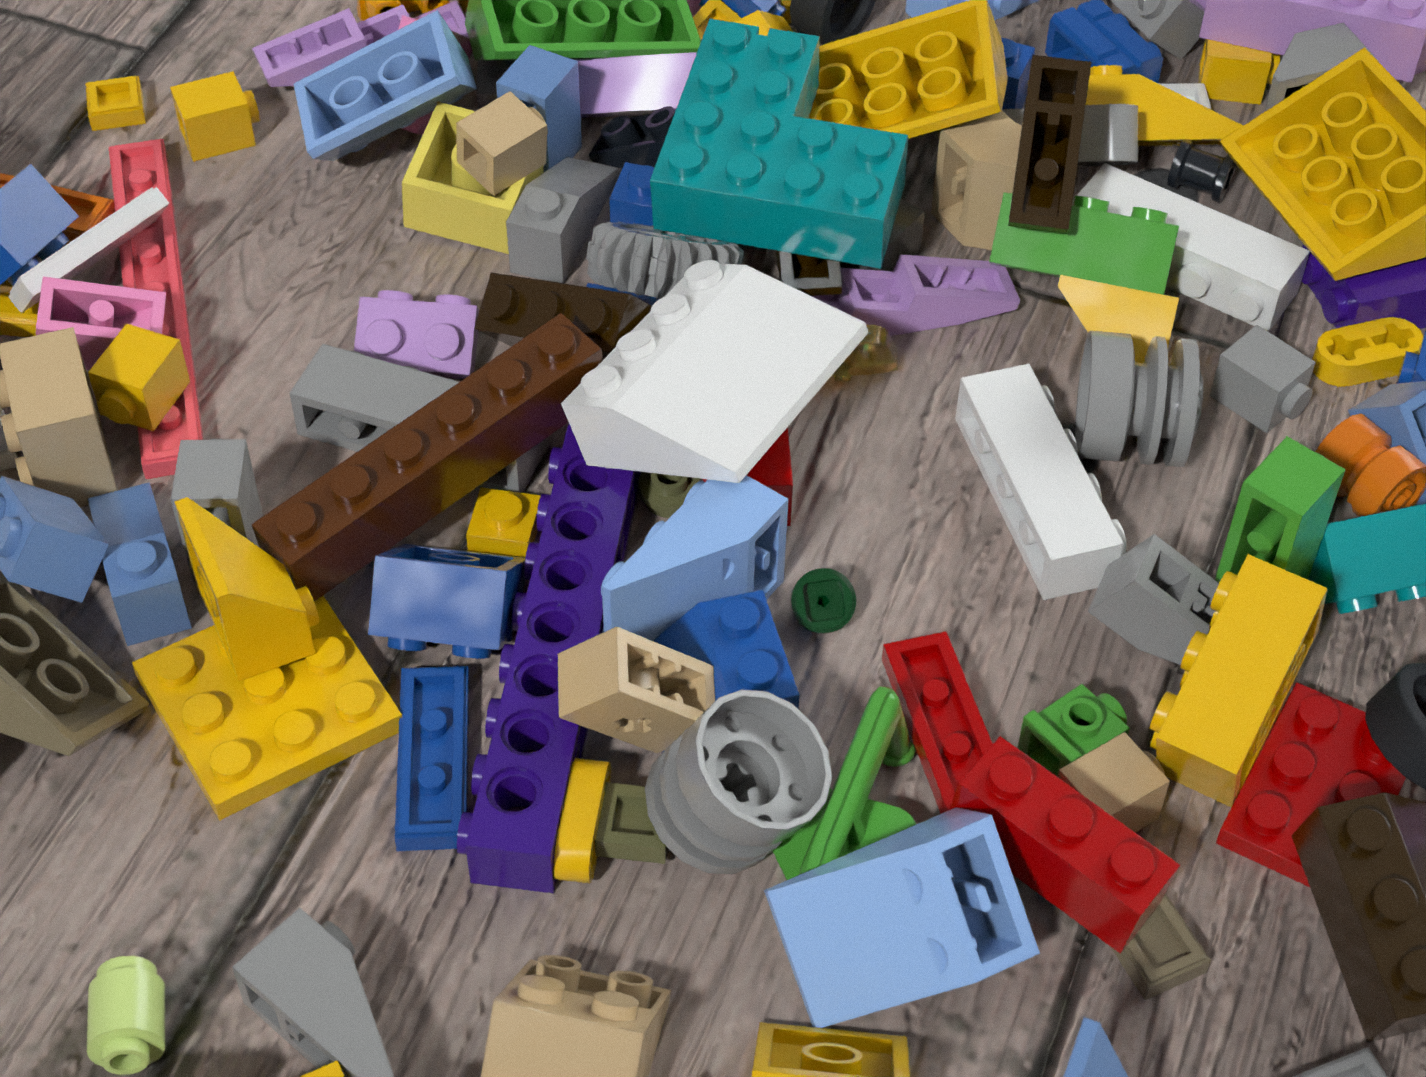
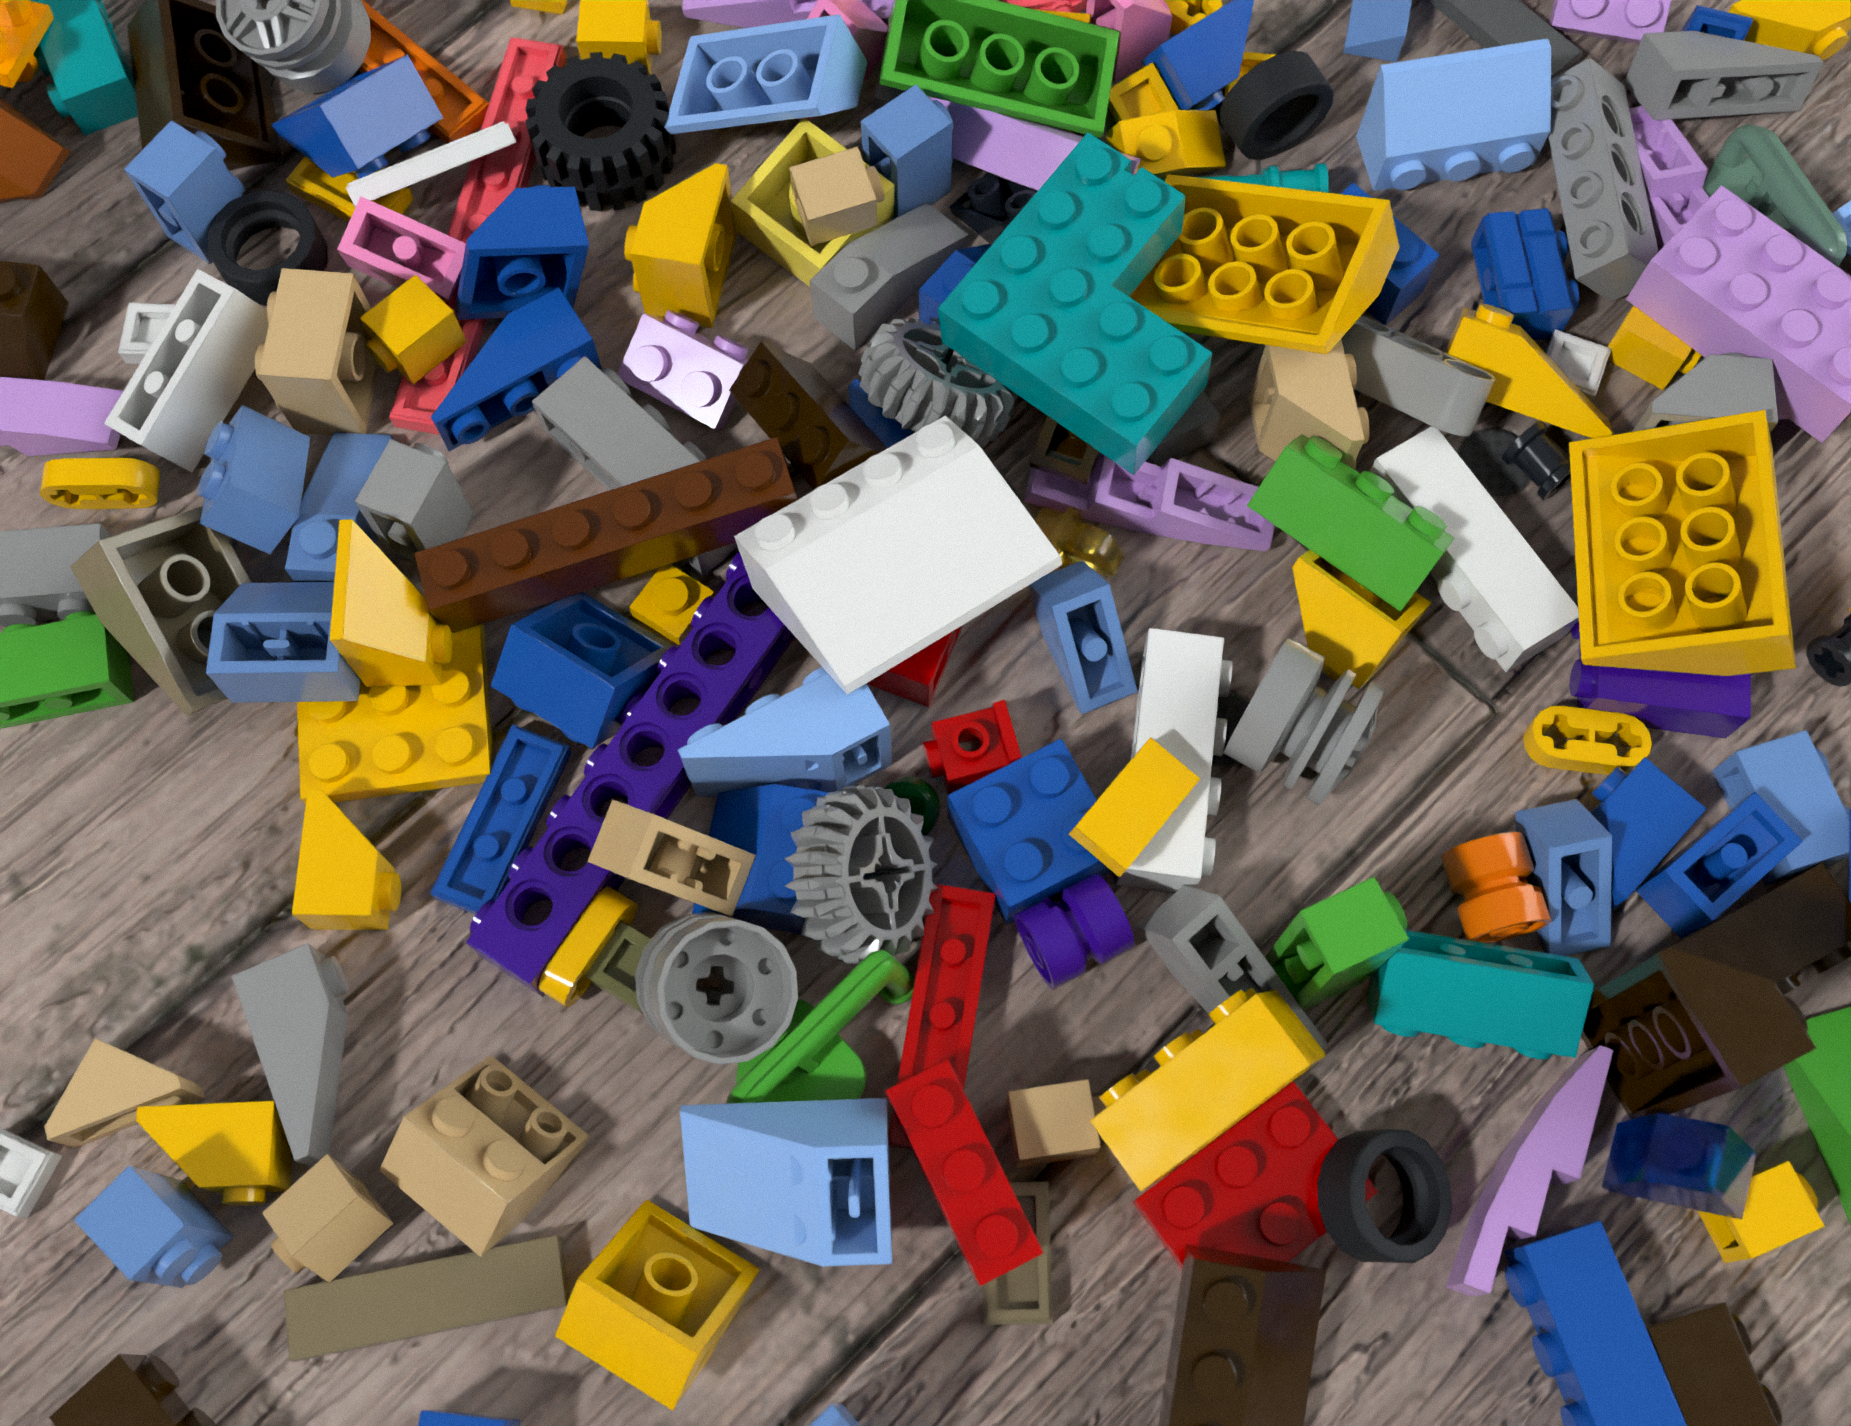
camera: 25 degrees right, 20 degrees up
(126, 1015) = (147, 970): yellowish green brick -> none
(156, 659) = (277, 646): none -> medium blue slope
(231, 282) = (523, 253): none -> blue slope
(240, 183) = (592, 96): none -> black tyre
(257, 374) = (513, 368): none -> blue slope
(298, 846) = (341, 873): none -> yellow slope
(370, 233) = (684, 246): none -> yellow slope
(821, 639) = (861, 873): none -> light grey gear
(859, 530) = (963, 767): none -> red brick
(902, 412) = (1084, 635): none -> medium blue slope
(951, 570) = (1020, 826): none -> blue brick
(1035, 633) = (1077, 929): none -> dark purple wheel
(1037, 500) = (1134, 807): none -> yellow tile
(1049, 144) = (1348, 419): dark brown slope -> none
(1071, 728) = (1035, 1065): bright green brick -> none
(1263, 379) = (1456, 737): light grey brick -> none

